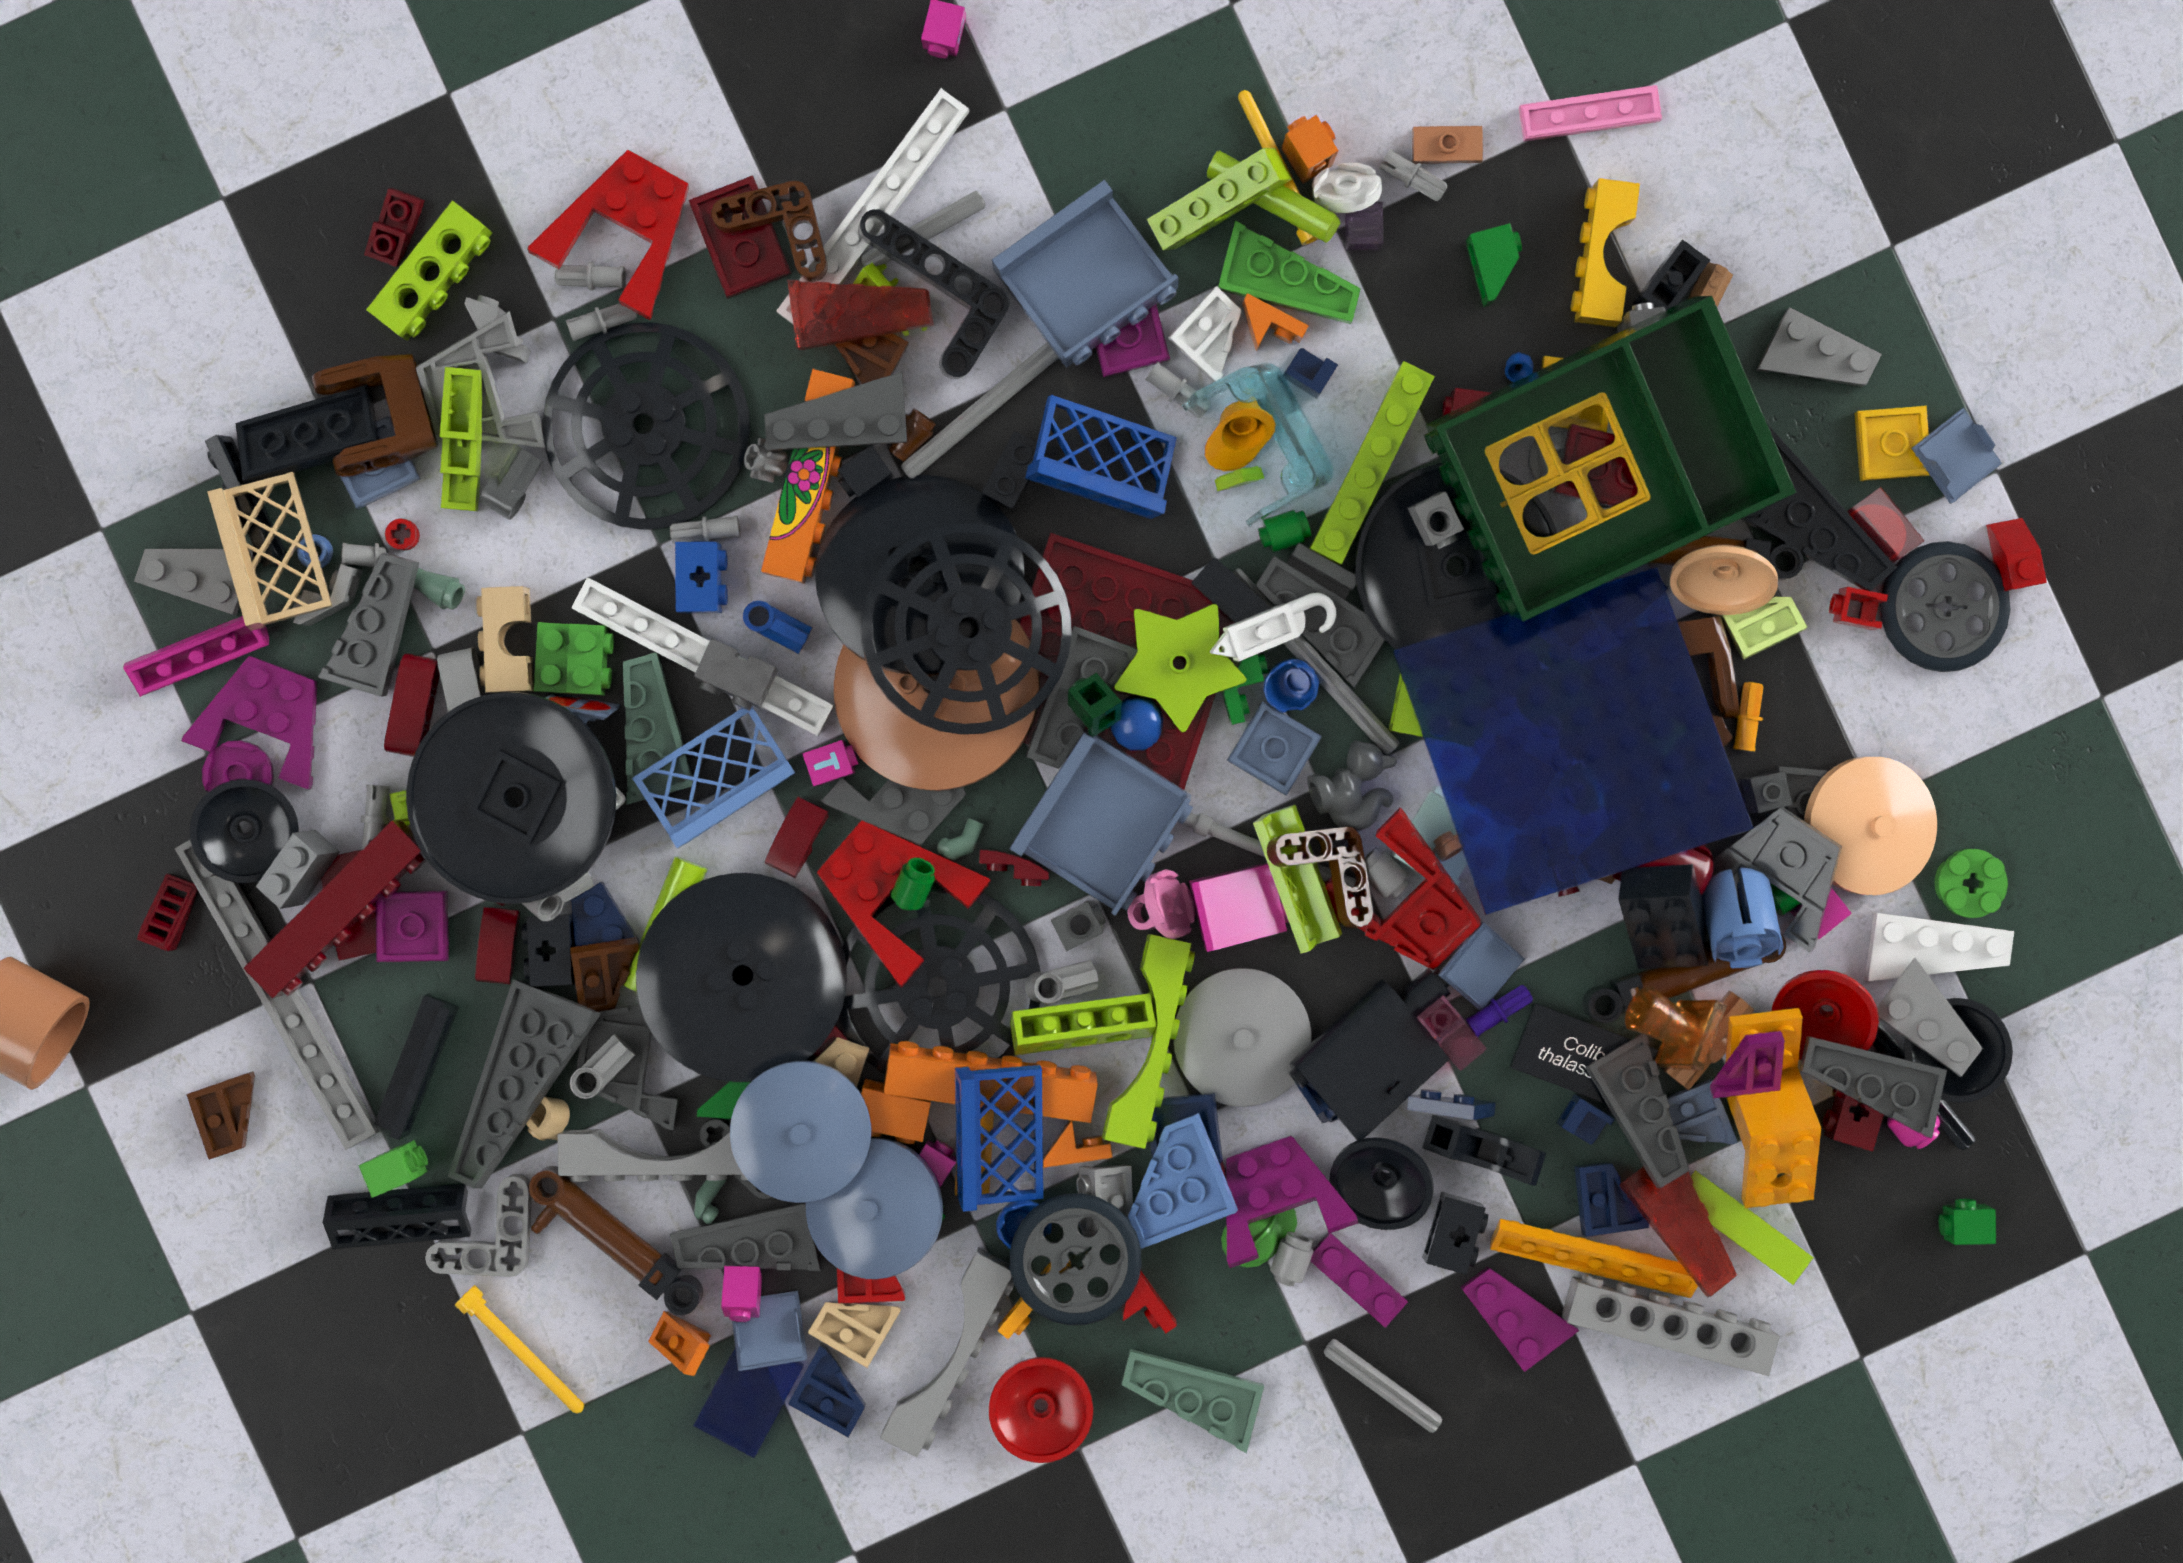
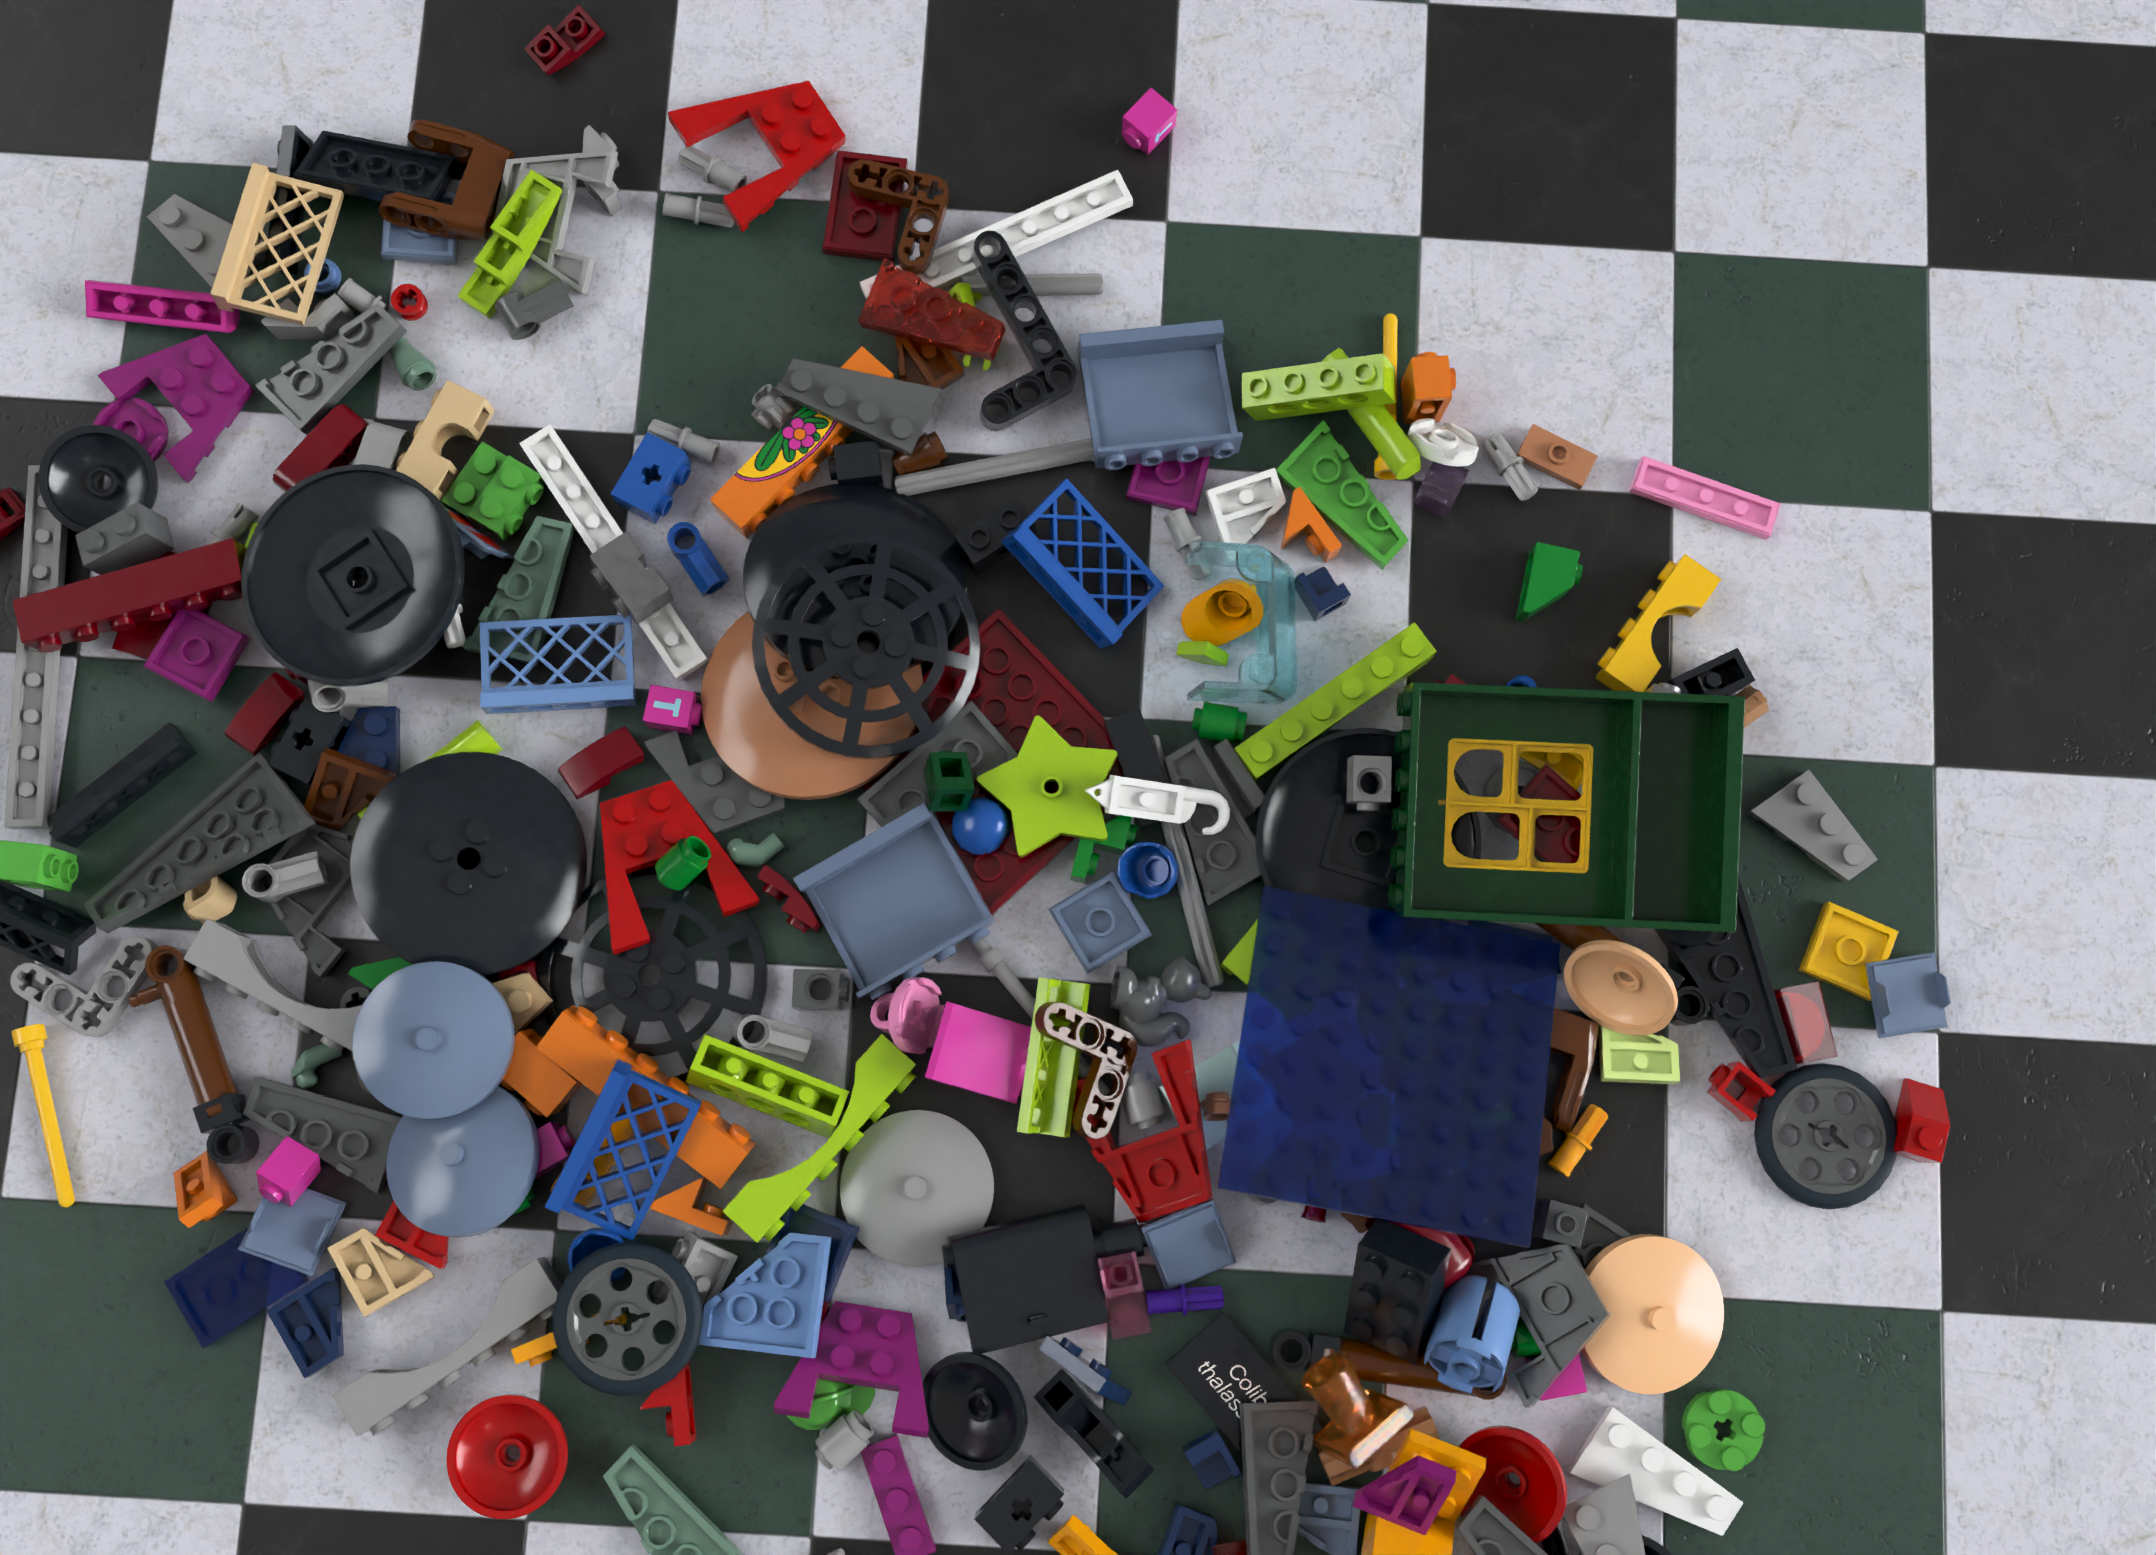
camera: 20 degrees right, 10 degrees down
(429, 252) = (556, 83): lime brick -> none
(662, 441) = (686, 341): black dish -> none

